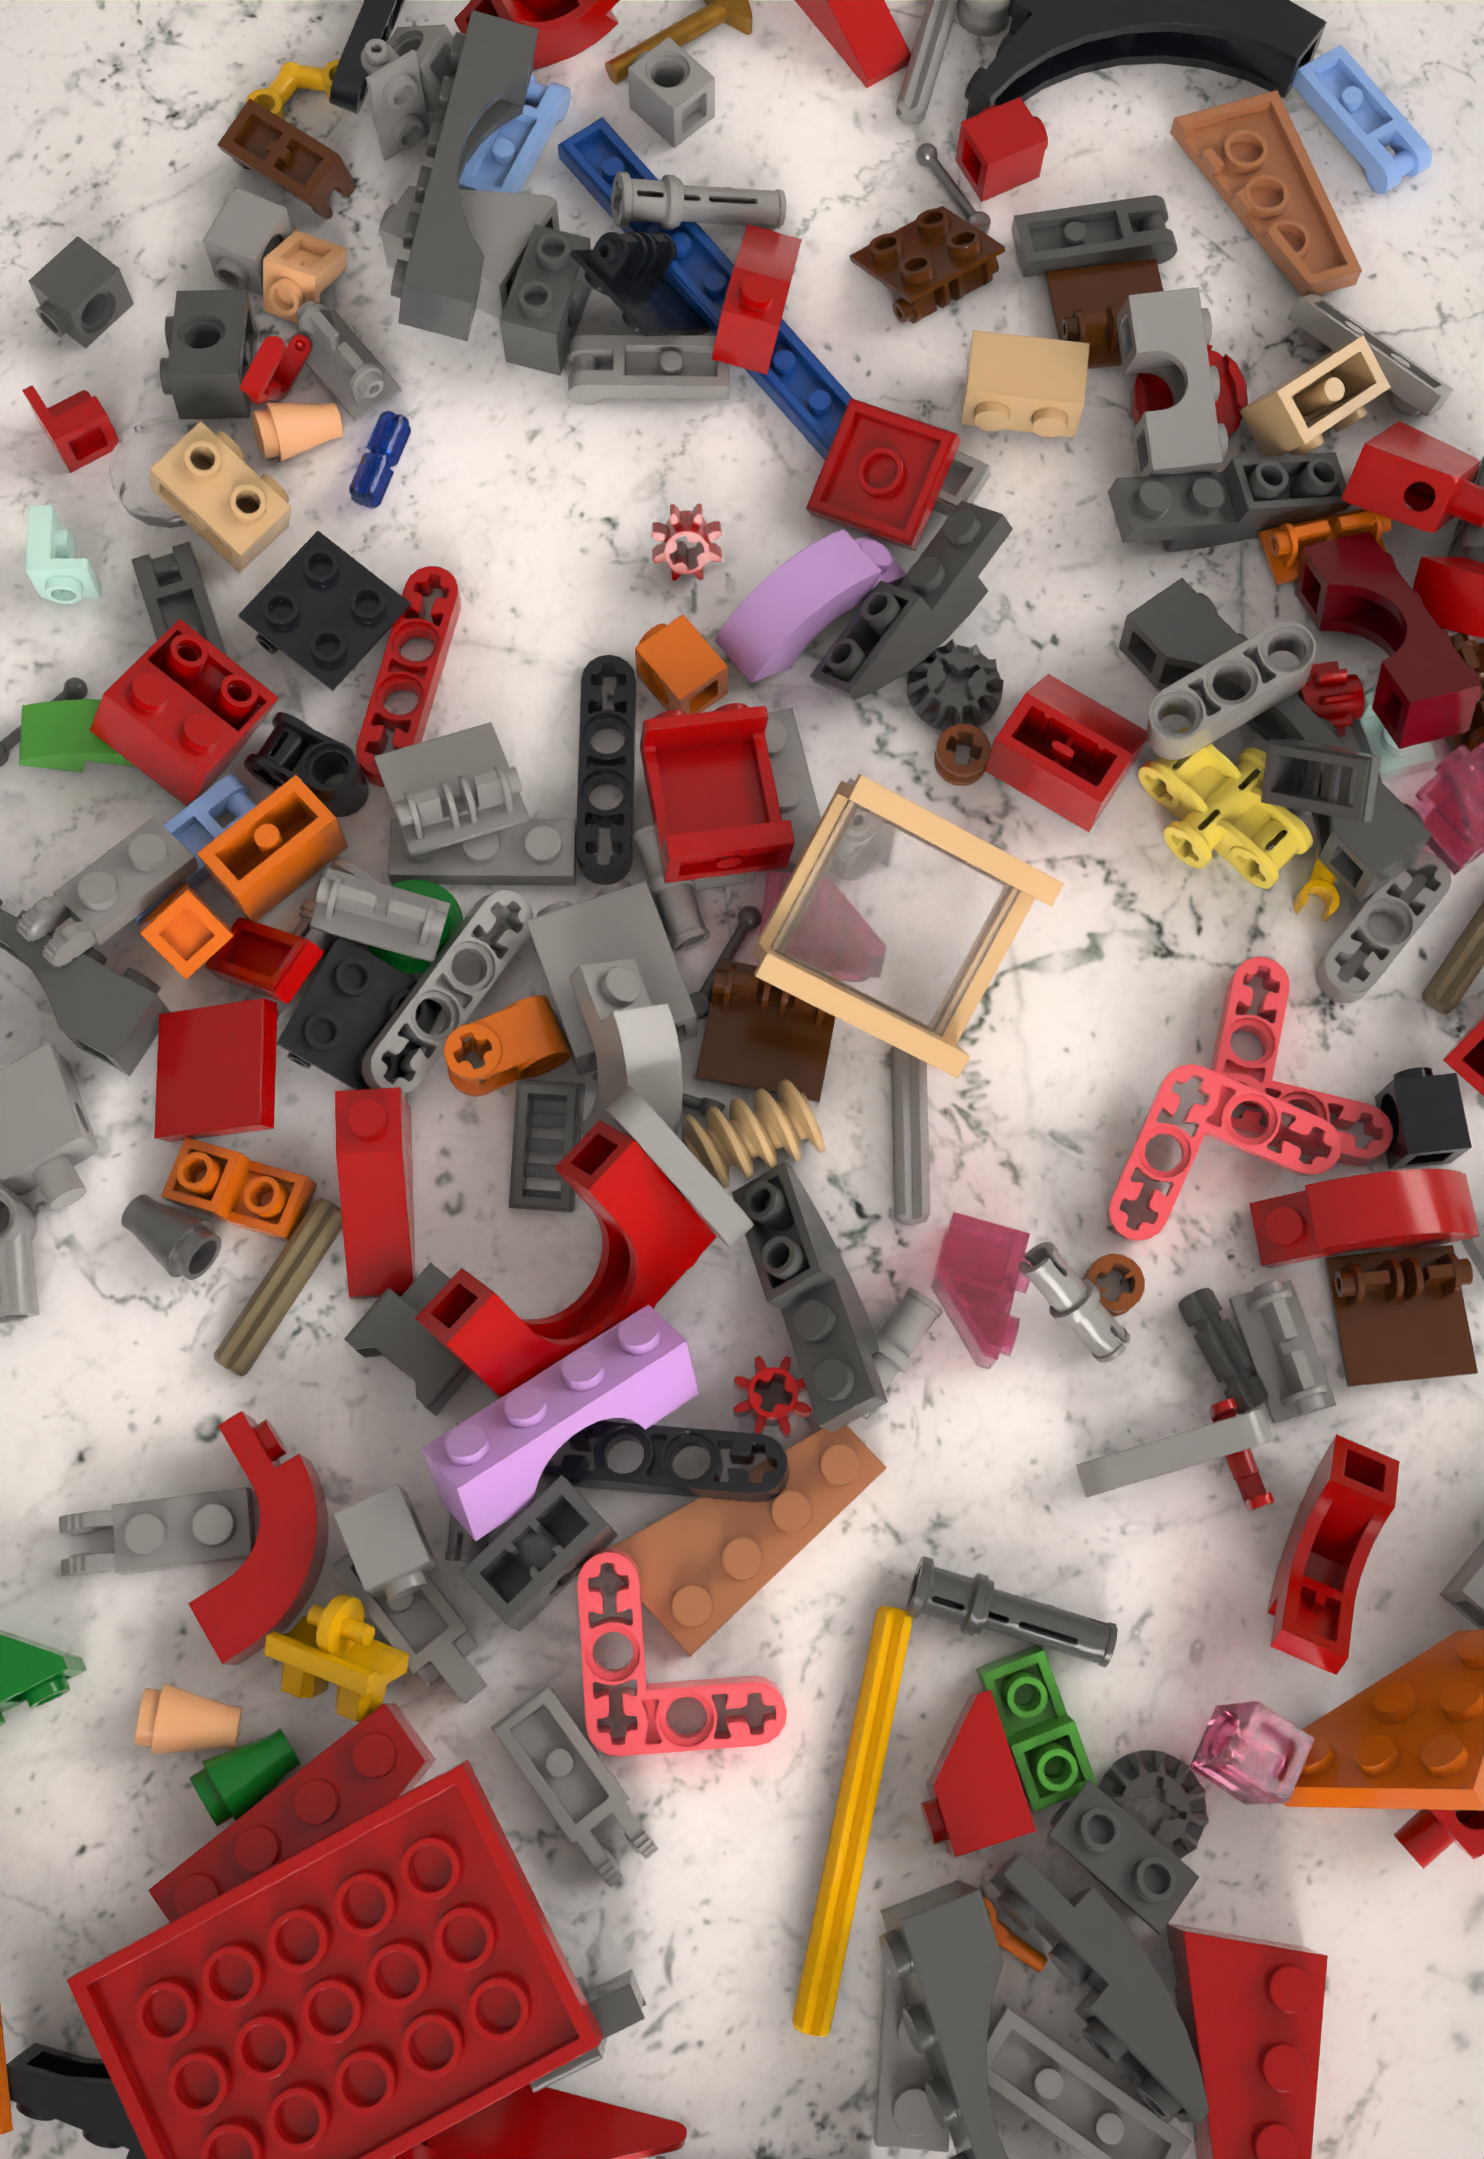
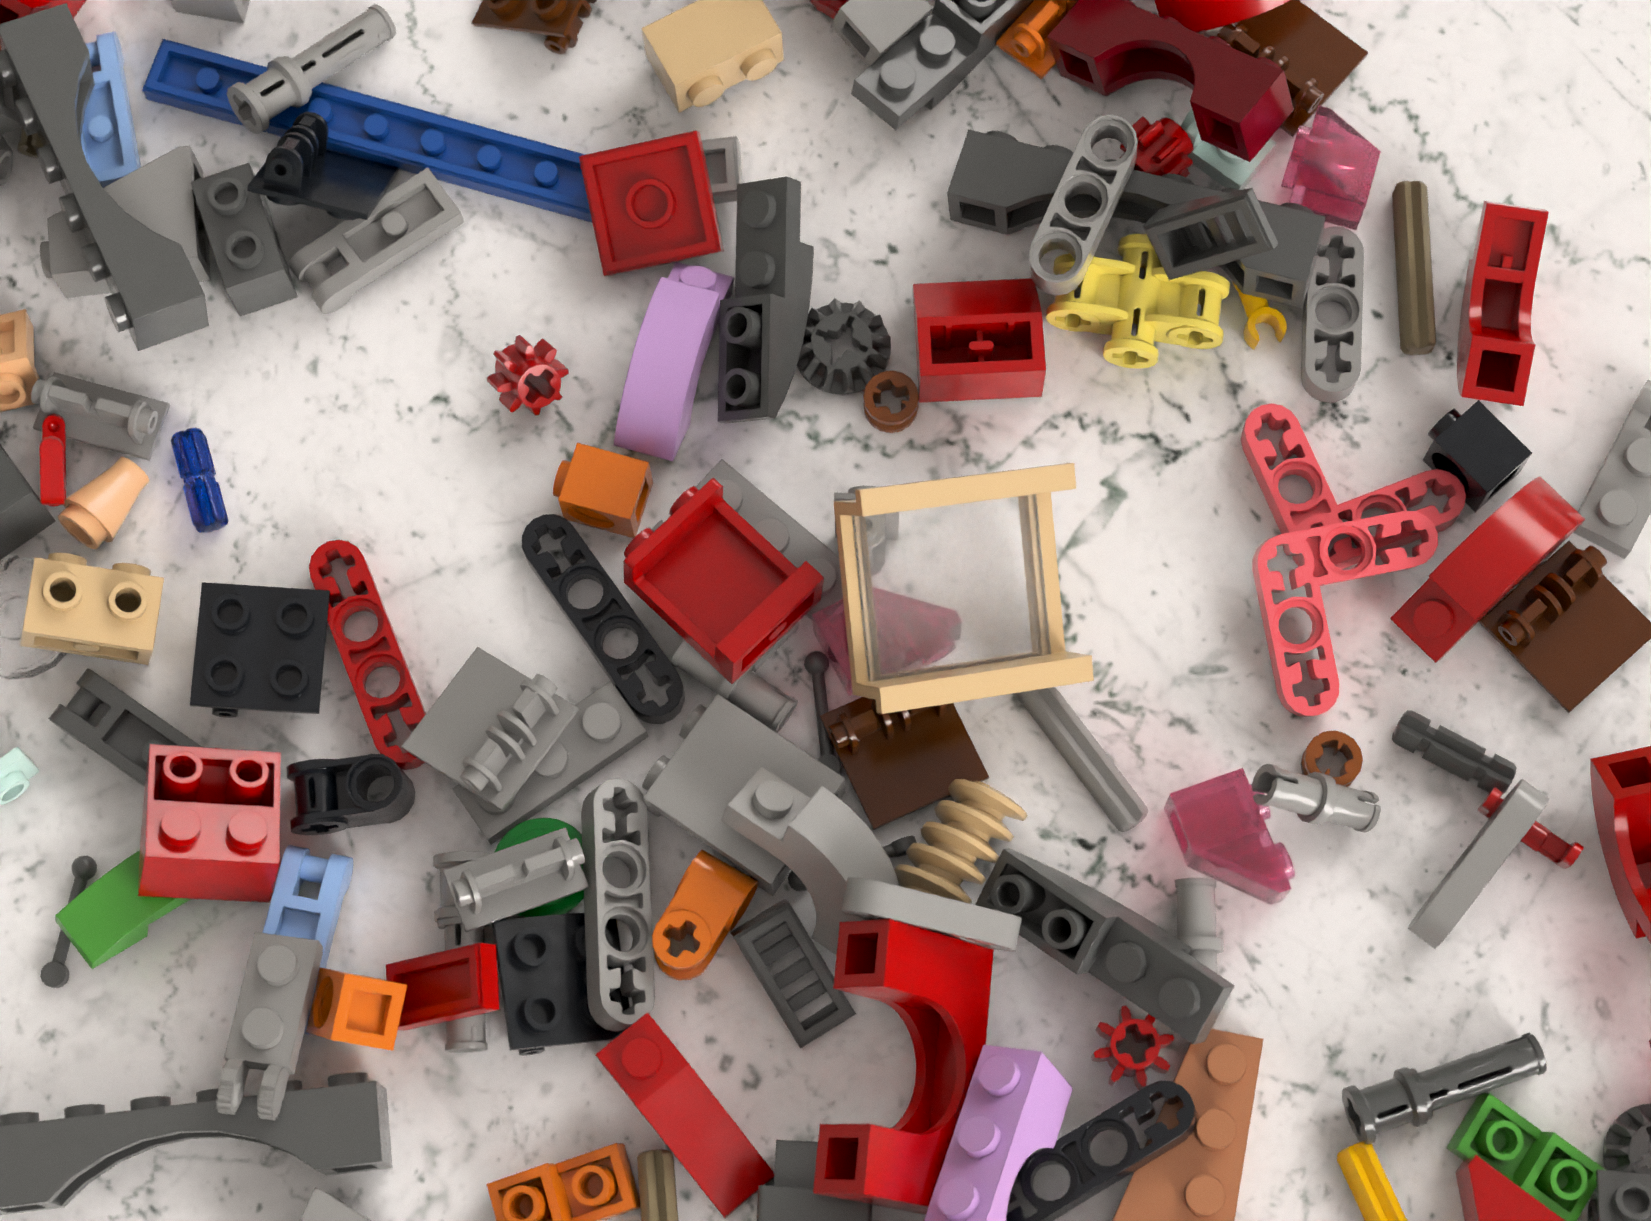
camera: 30 degrees left, 0 degrees up
(216, 1070) = (472, 1109): red tile -> none
(273, 849) = (378, 886): orange brick -> none
(756, 299) = (430, 116): red slope -> none
(1282, 1350) = (1500, 720): light grey hinge -> none

